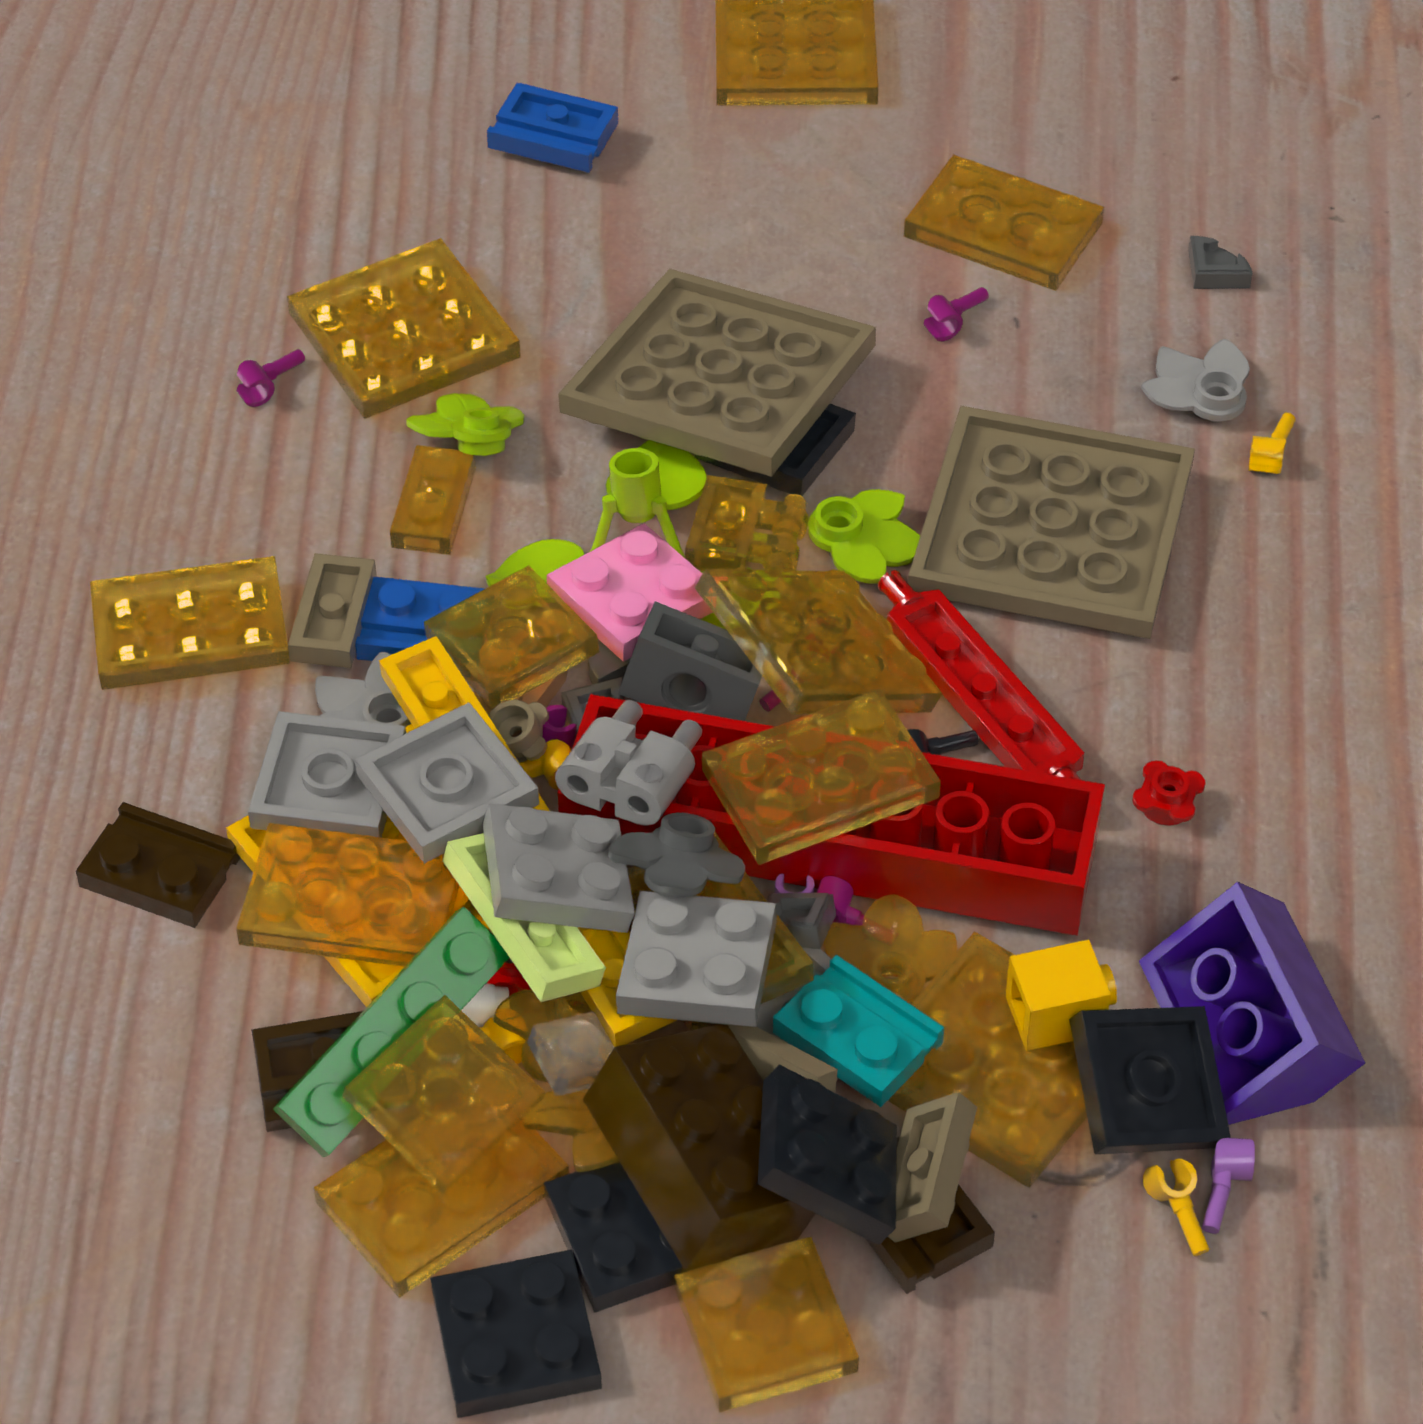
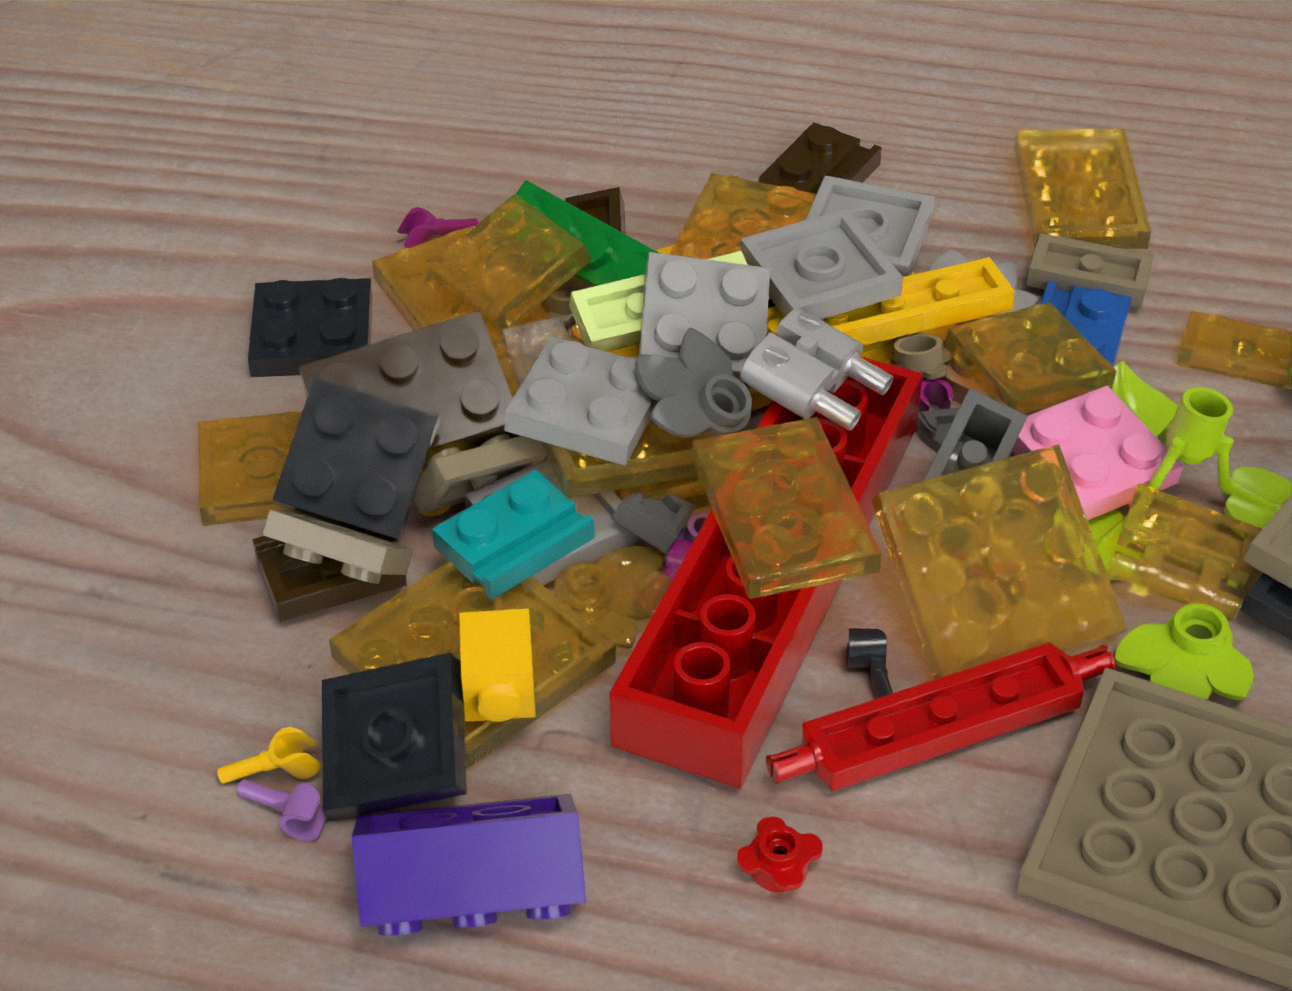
camera: 100 degrees right, 5 degrees down
(321, 1239) = (422, 225): none -> magenta hand

